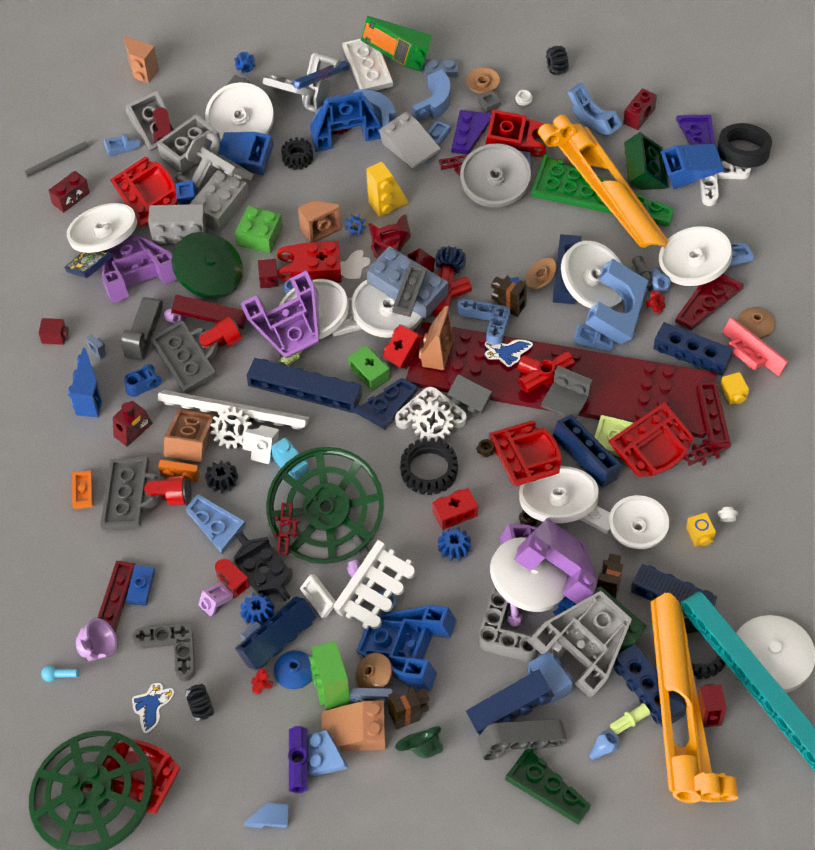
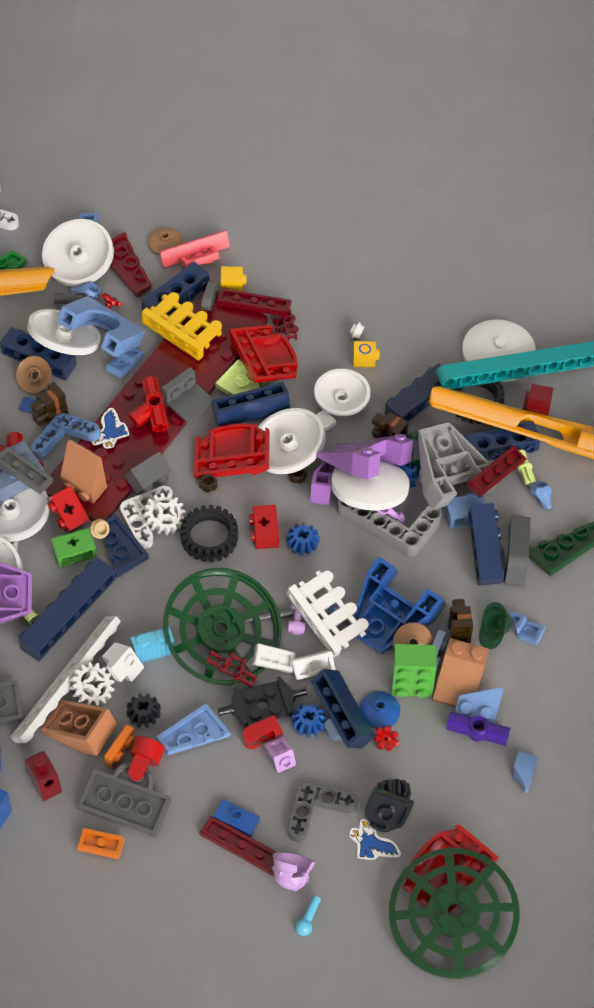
camera: 75 degrees left, 0 degrees up
(177, 701) = (387, 810): none -> black tile
(311, 558) = (273, 658): none -> white plate
(391, 377) = (99, 528): none -> tan plate
(433, 775) = (527, 630): none -> medium blue slope
(599, 686) = (496, 471): none -> dark red tile
(646, 369) = (180, 335): none -> yellow fence
(699, 374) = (209, 296): none -> dark grey beam

